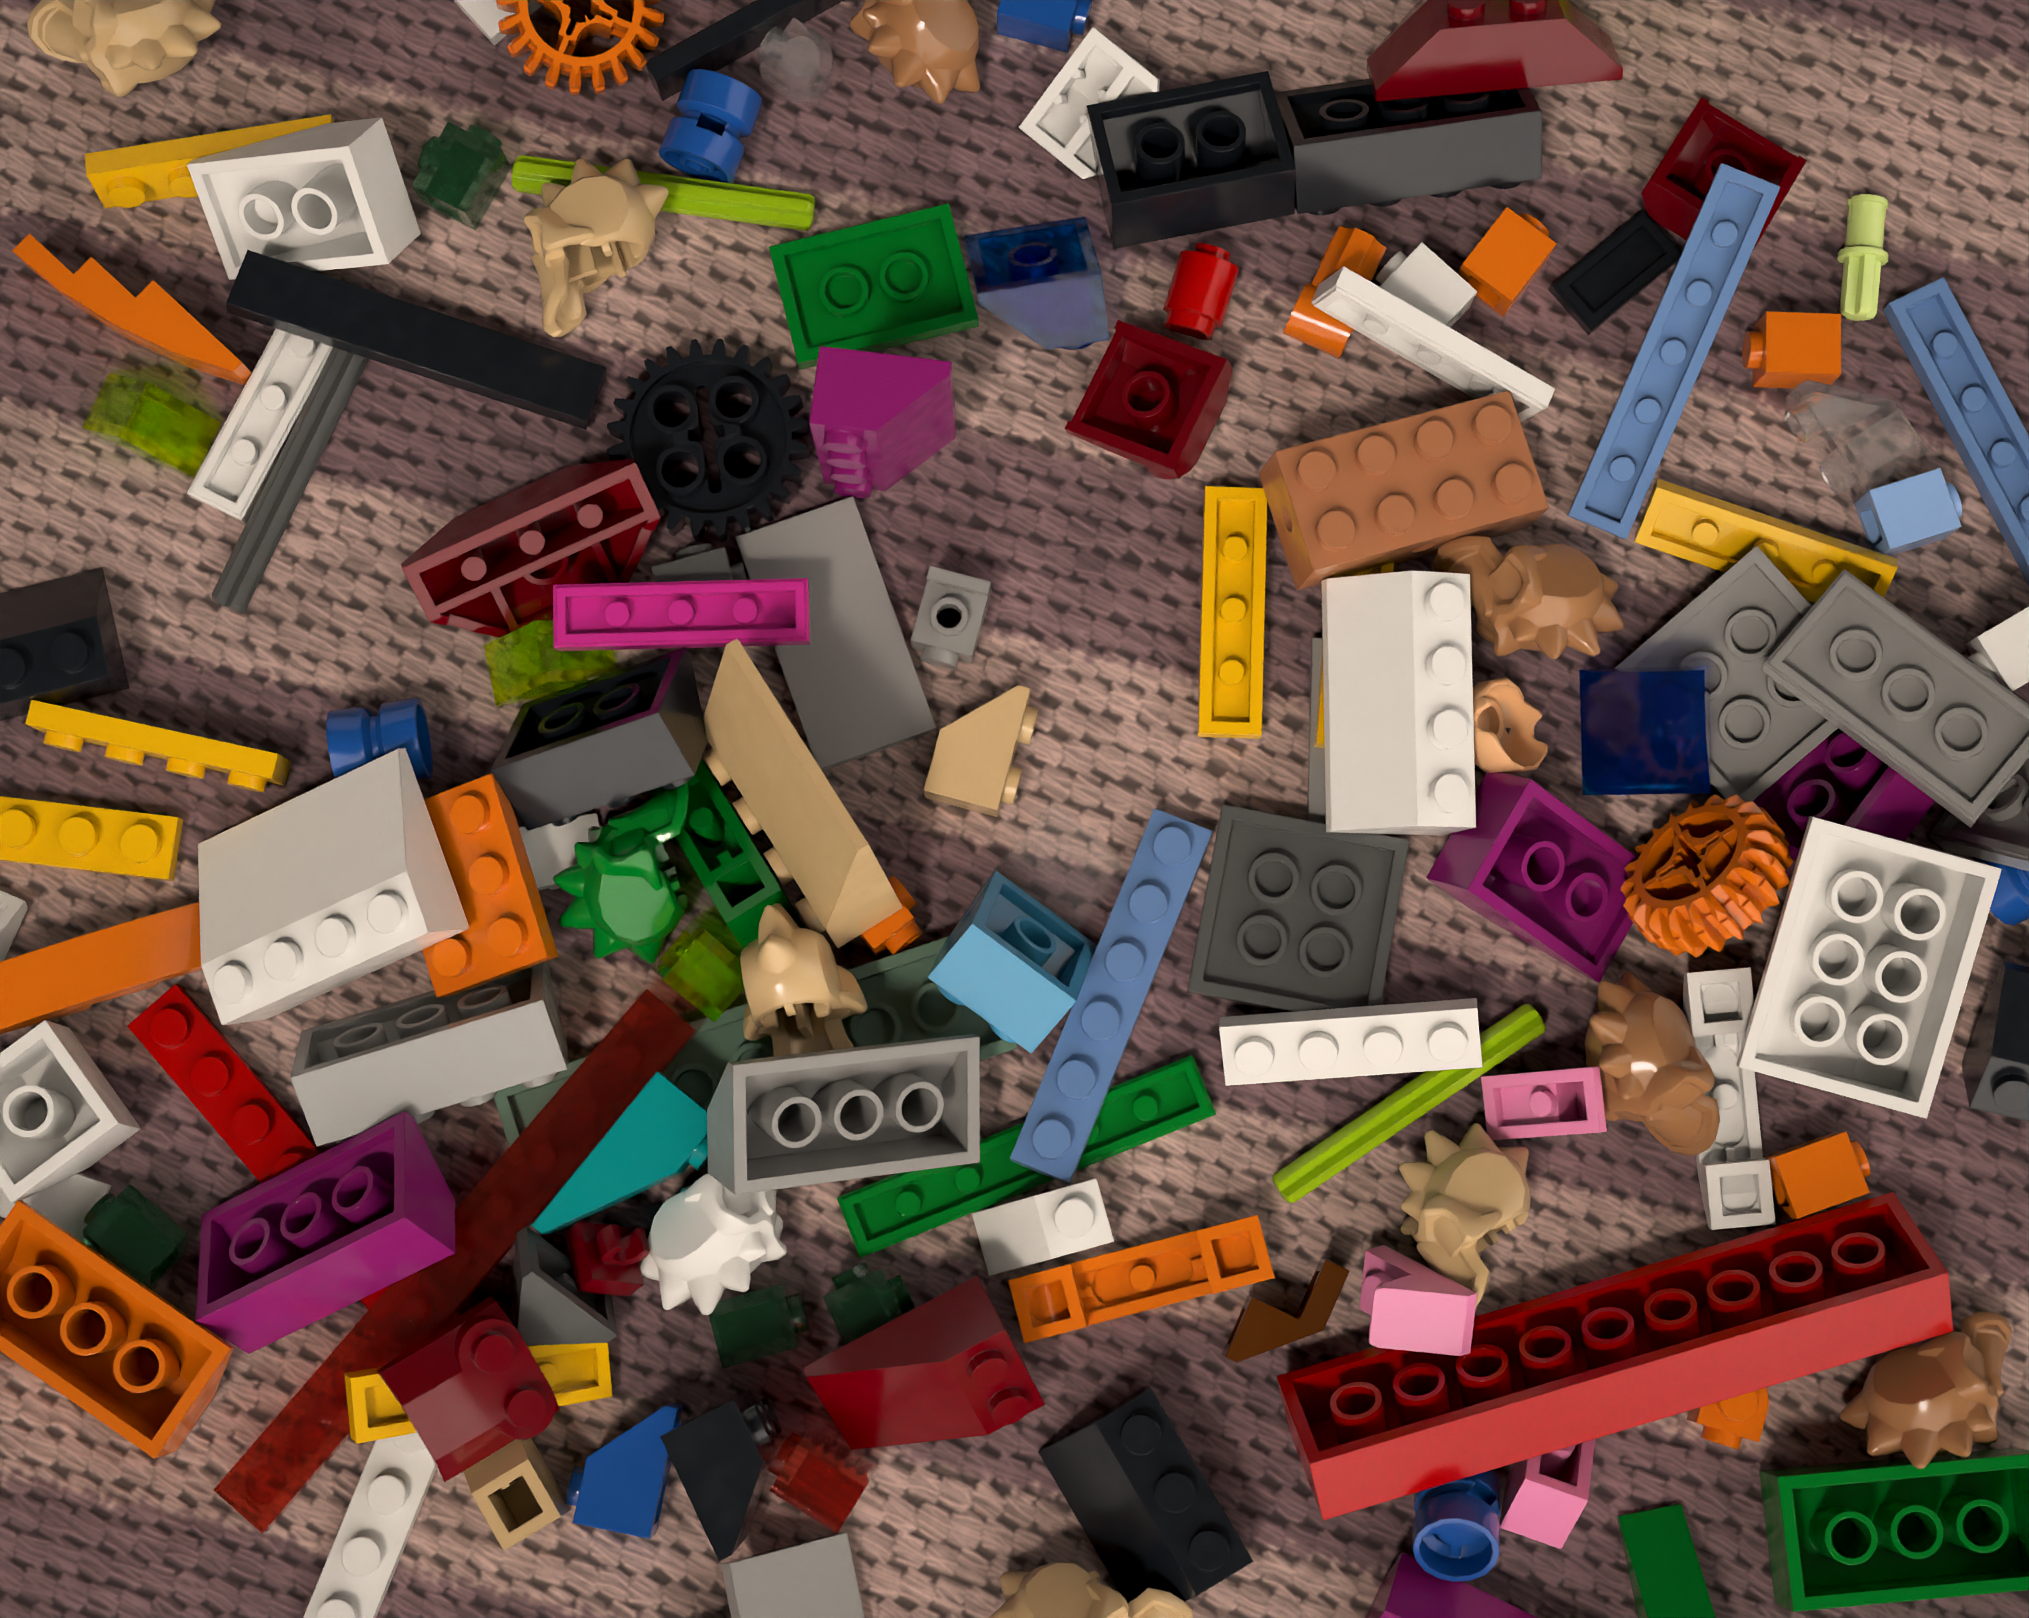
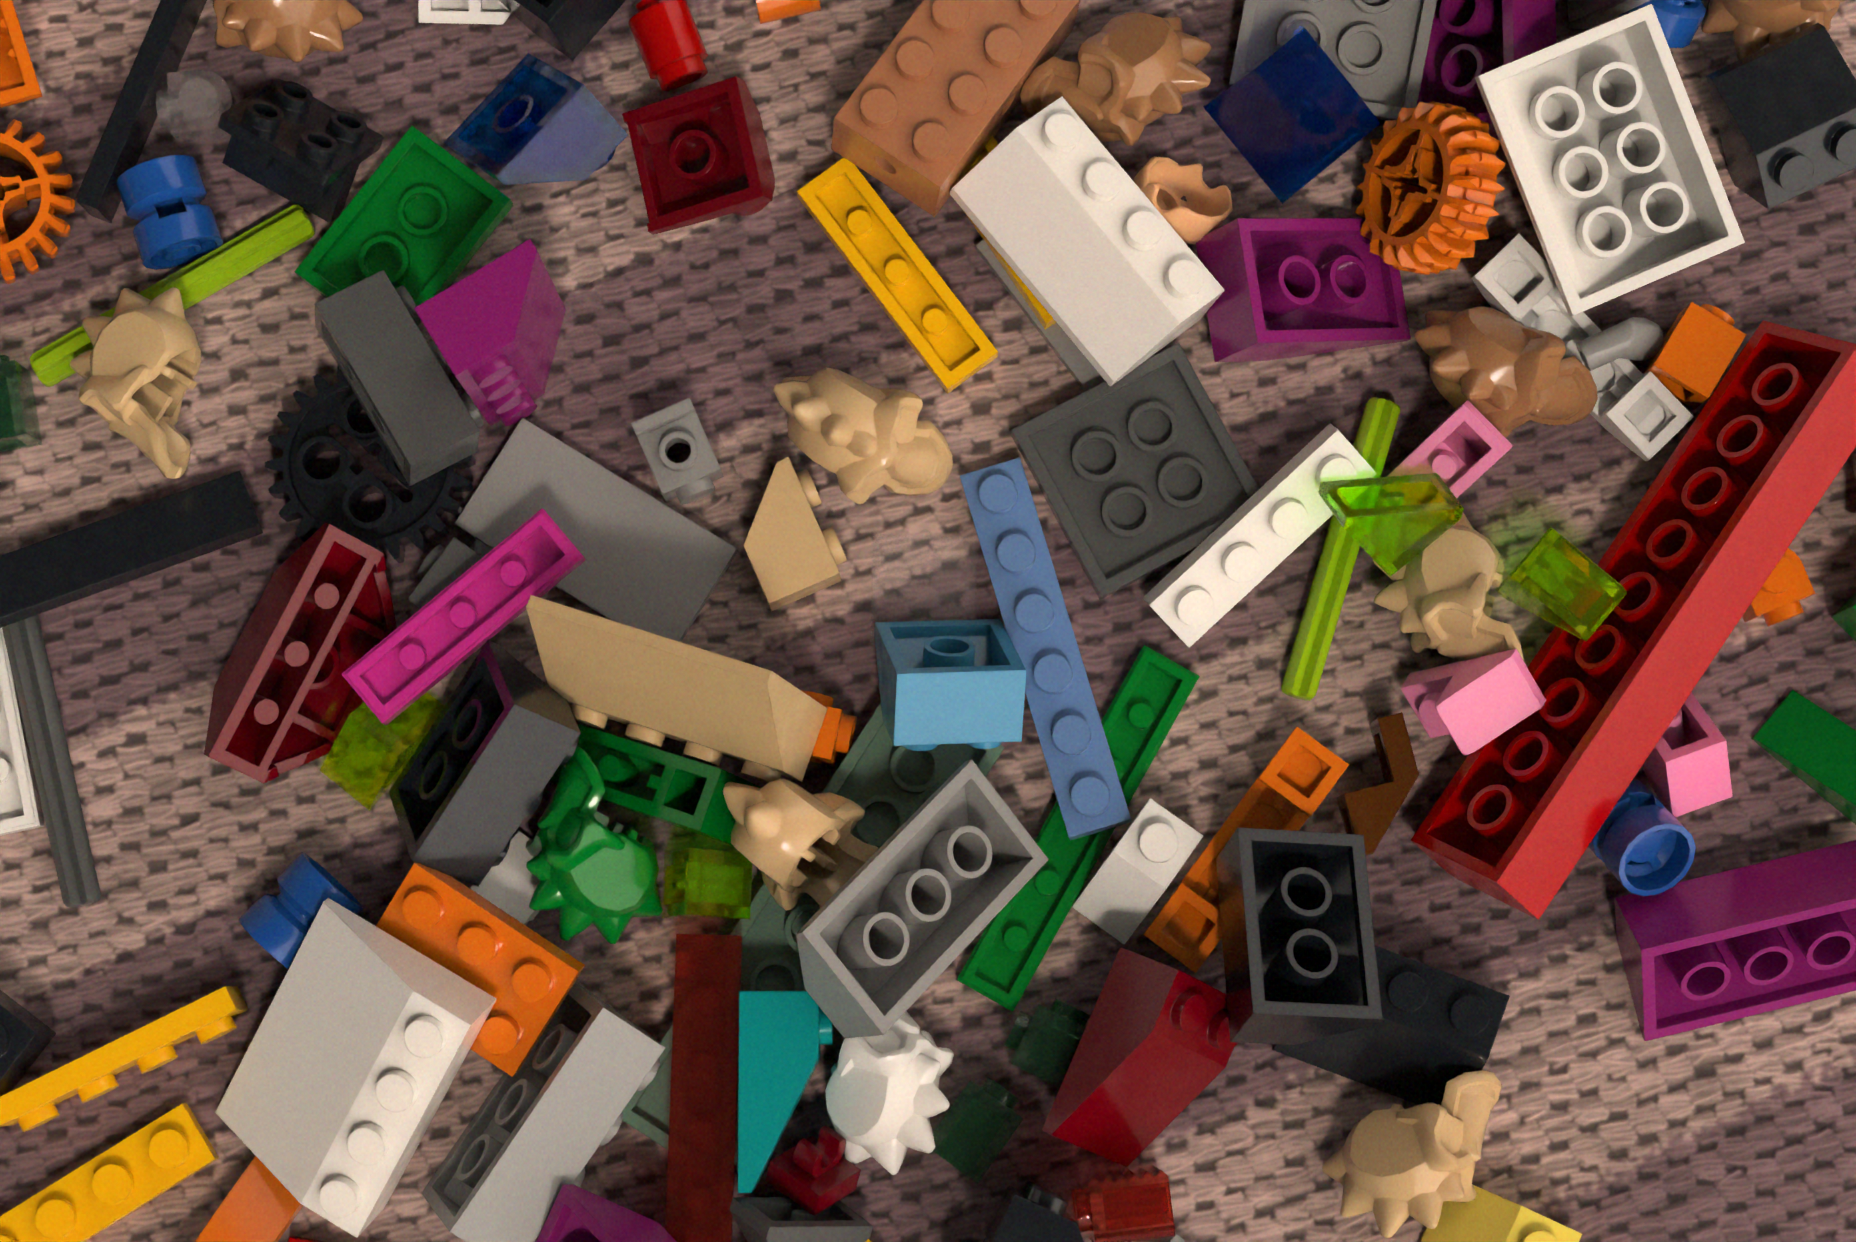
camera: 40 degrees left, 0 degrees up
(773, 397) = (398, 376): none -> dark grey brick
(849, 151) = (298, 146): none -> black bracket
(1104, 717) = (865, 434): none -> tan head
(1122, 1378) = (1296, 936): none -> black slope
(1466, 1110) = (1393, 514): none -> clear neon green slope
(1557, 1274) = (1562, 586): none -> clear neon green slope
(1774, 1122) = (1631, 339): none -> light grey arm

